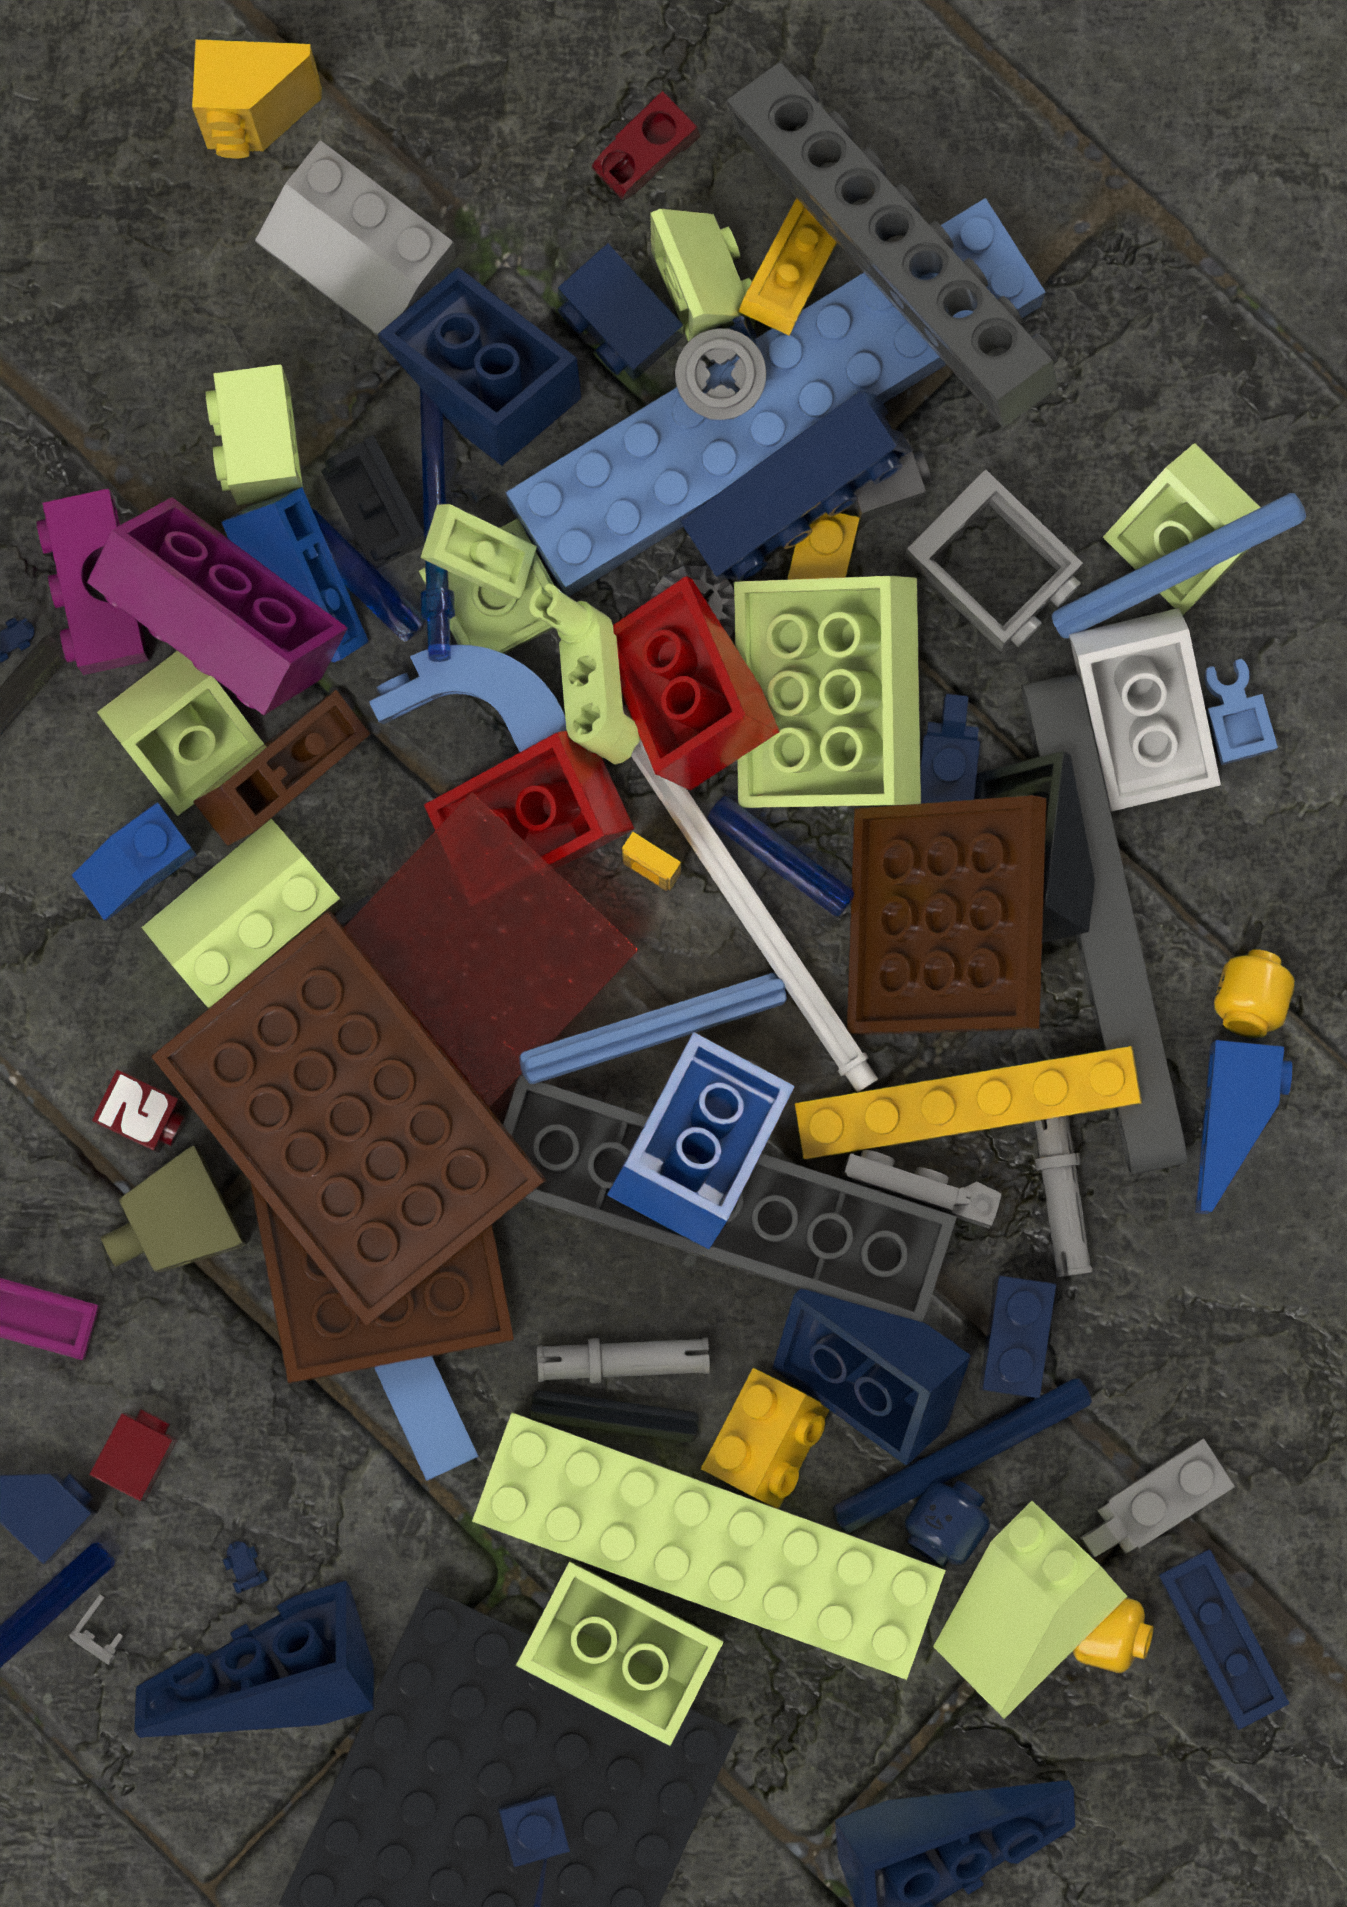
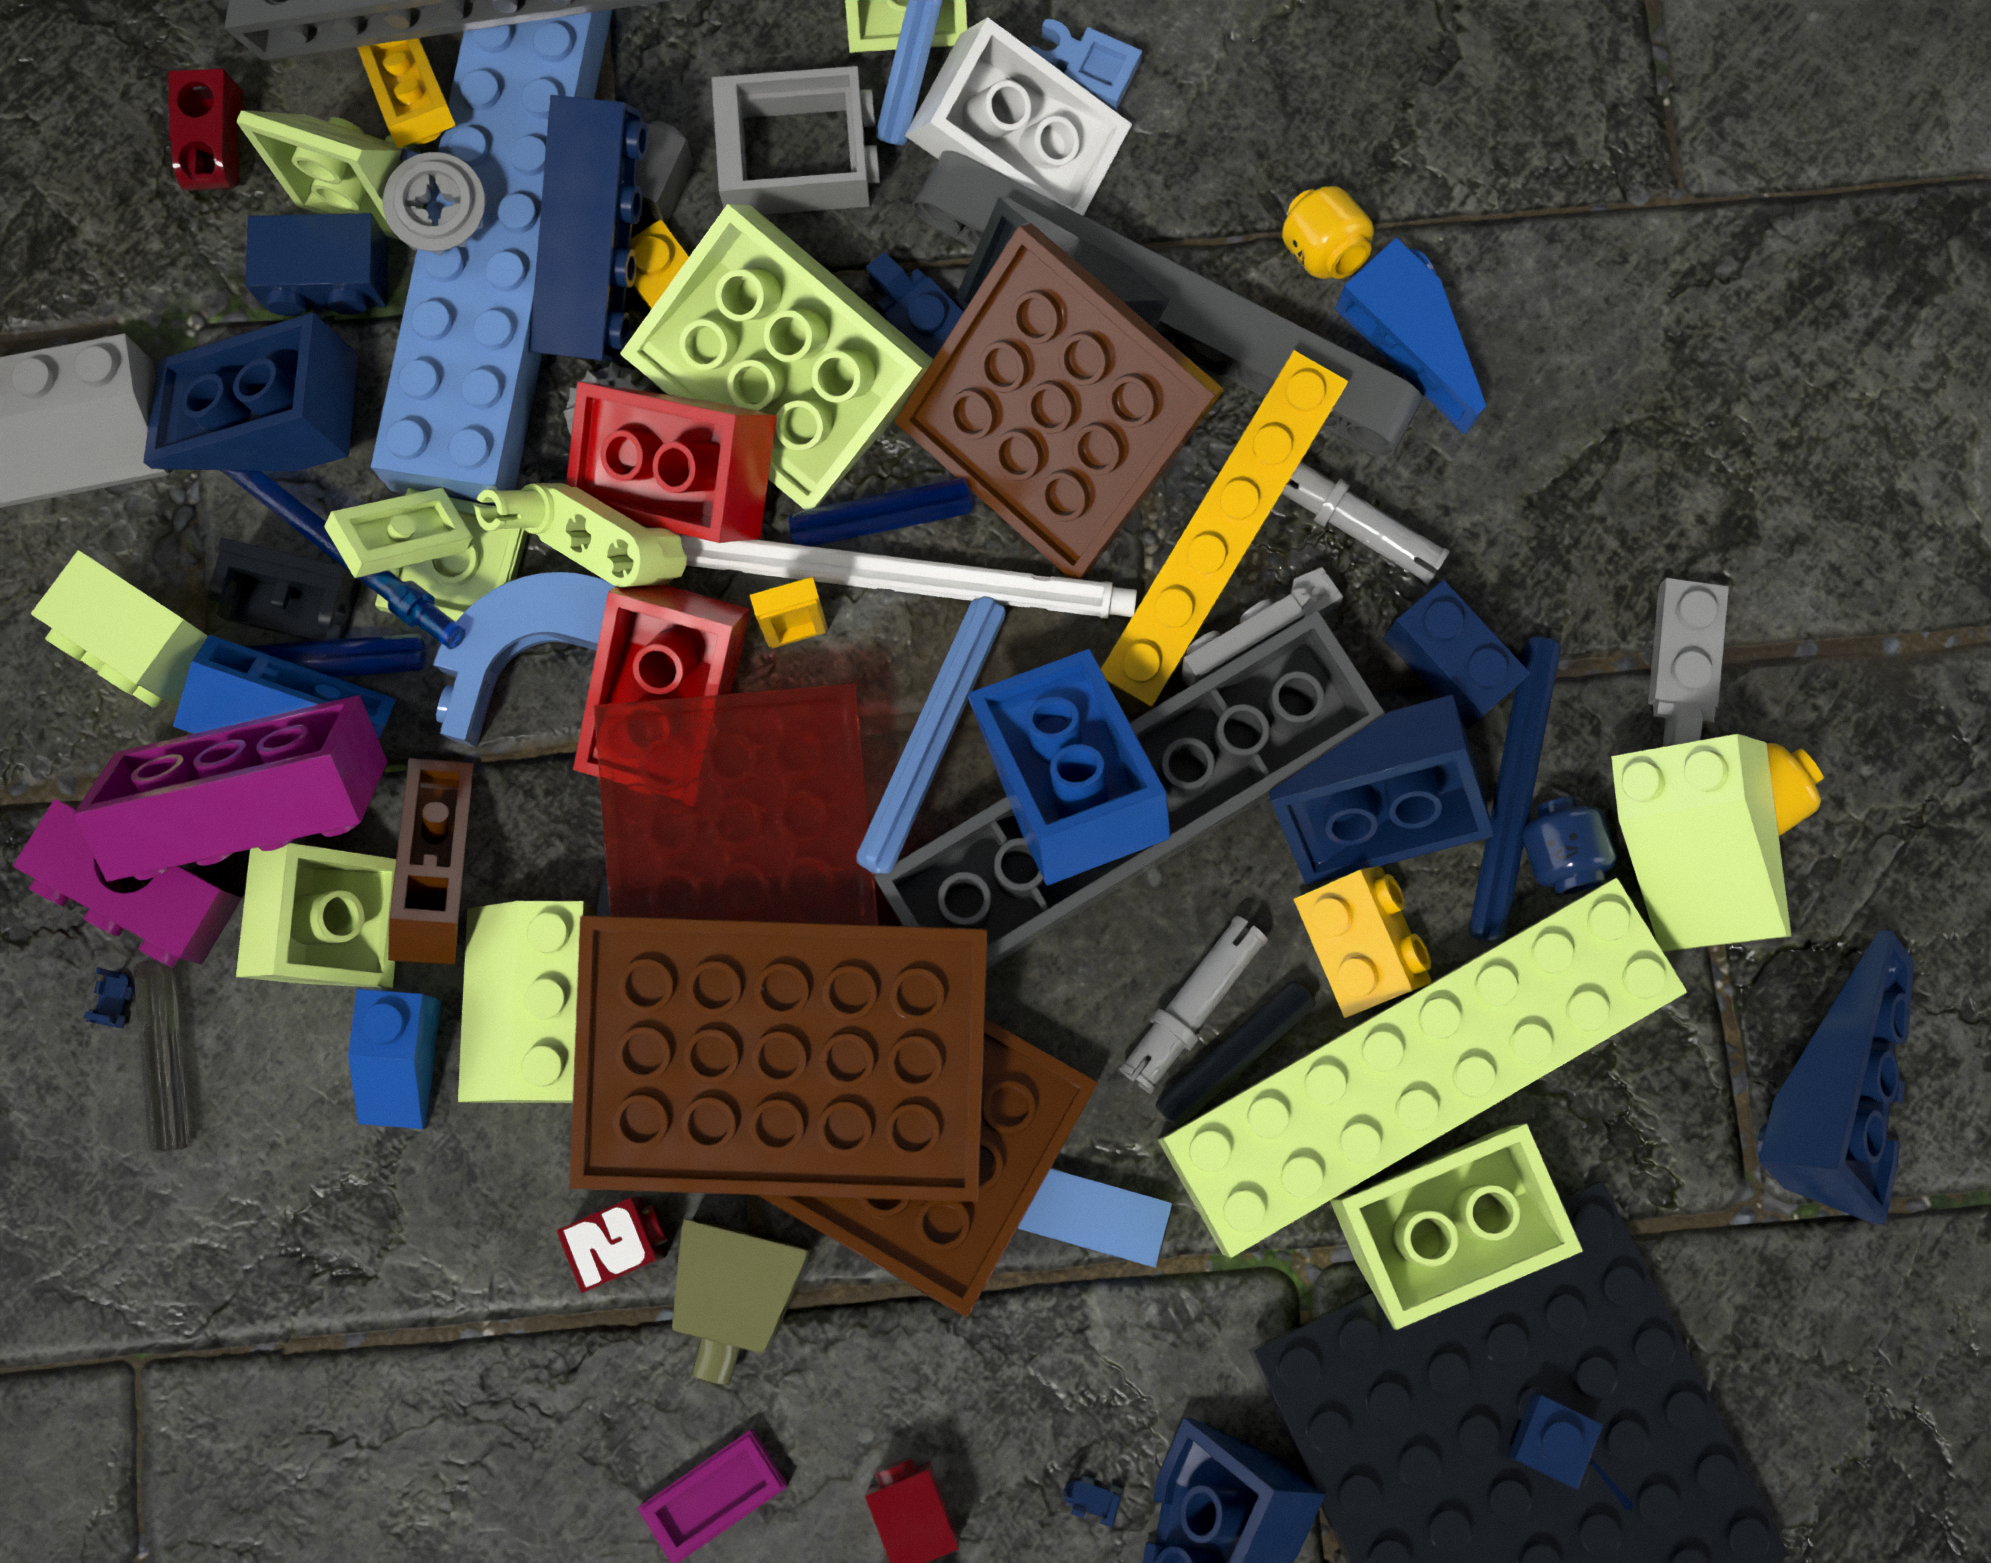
camera: 50 degrees left, 5 degrees down
(1223, 1639) = (1853, 702): dark blue plate -> none

